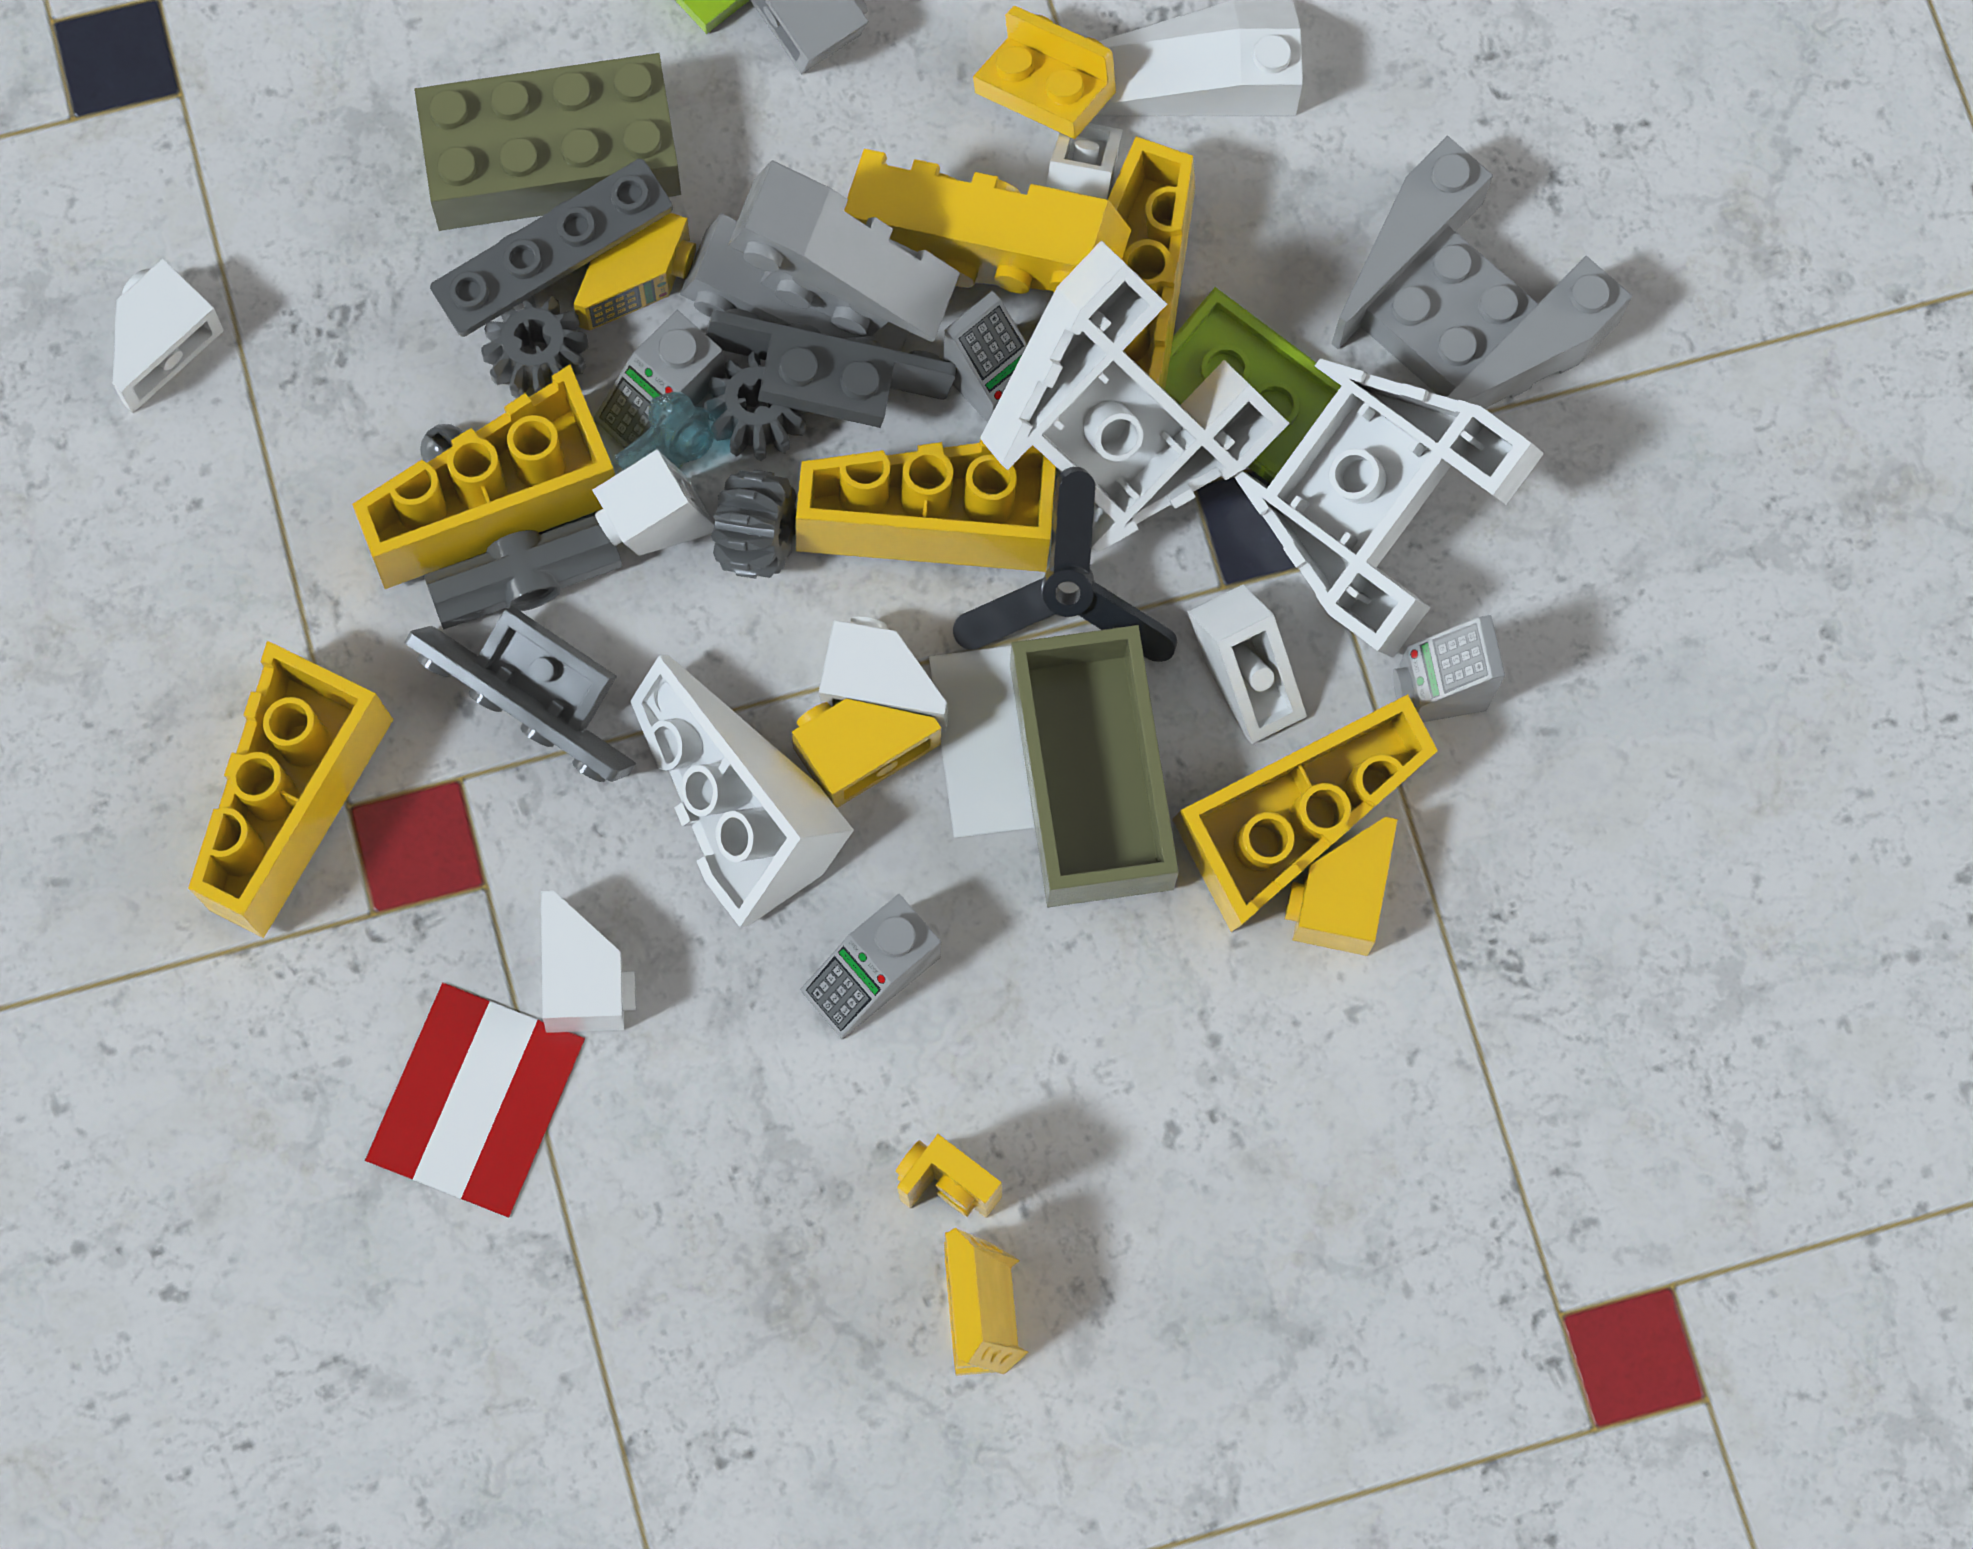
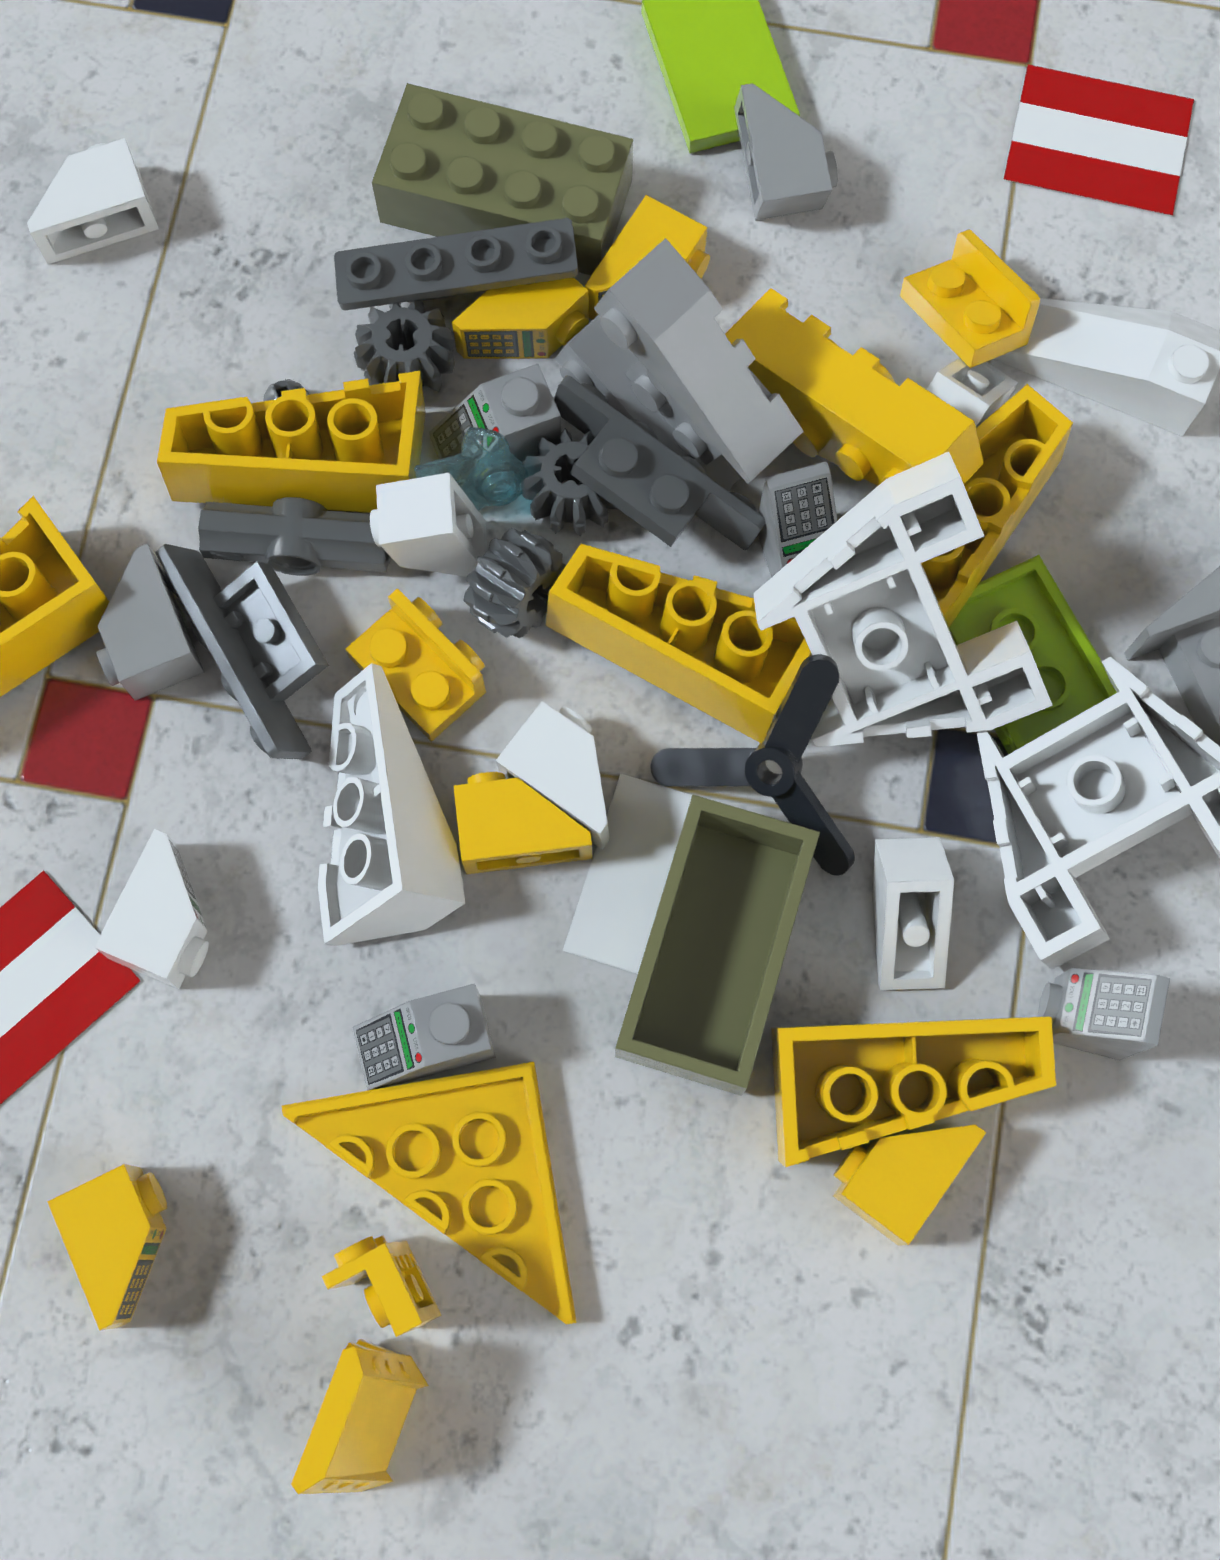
camera: 30 degrees right, 0 degrees up
(431, 721) = (145, 631): none -> light grey slope
(683, 1258) = (112, 1238): none -> yellow slope
(706, 637) = (424, 669): none -> yellow bracket
(725, 156) = (641, 234): none -> yellow slope
(958, 1057) = (465, 1160): none -> yellow tile

